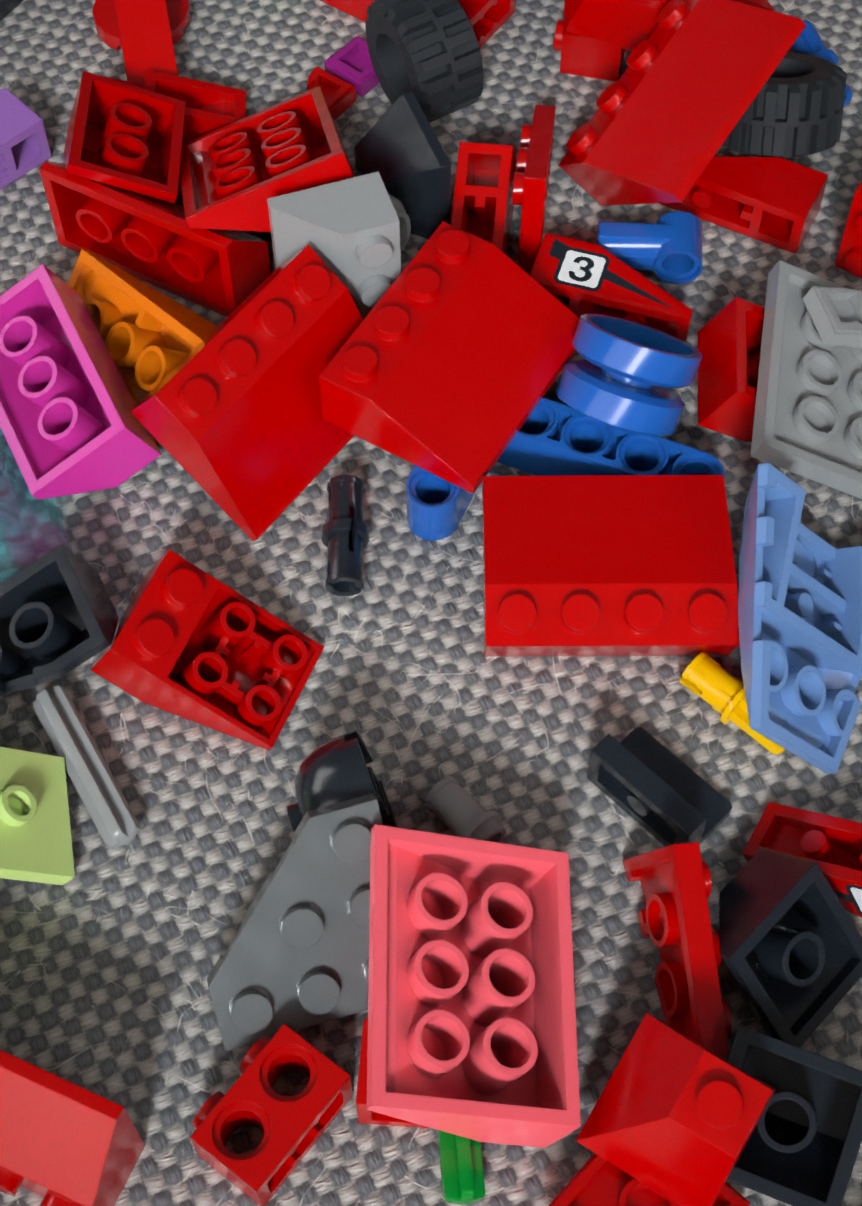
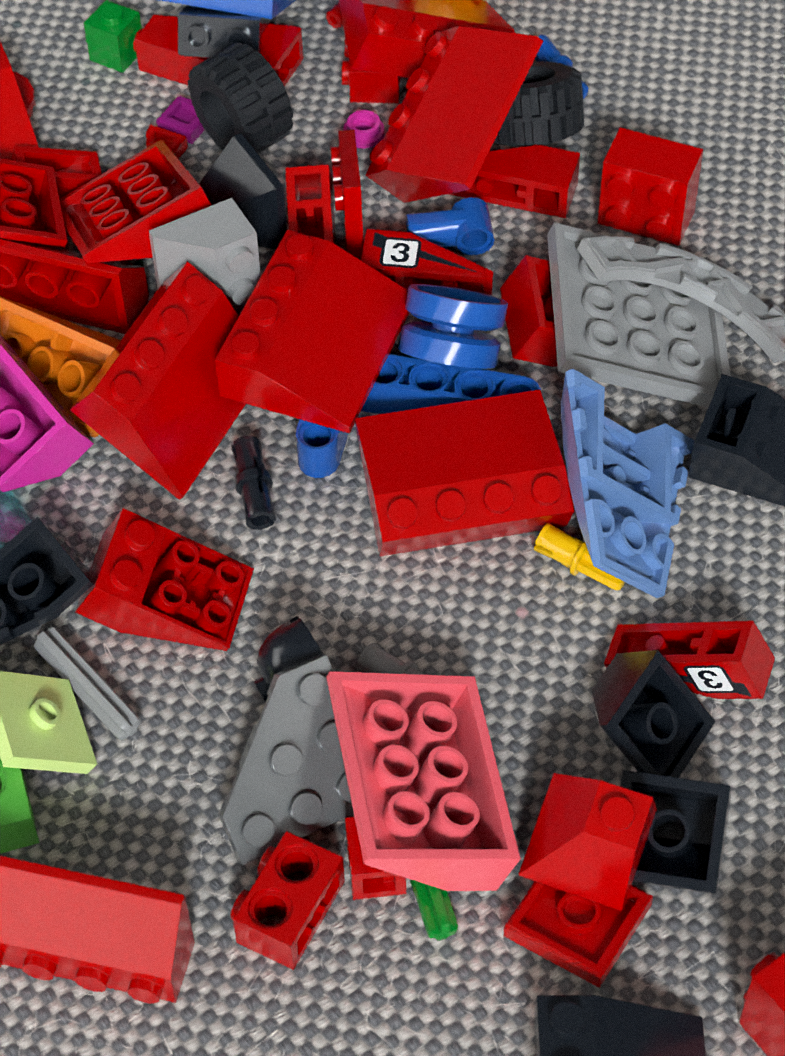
camera: 10 degrees left, 5 degrees down
(572, 106) = (367, 127): none -> dark pink plate
(656, 788) = (531, 630): black panel -> none
(680, 926) = (565, 715): red wing -> none

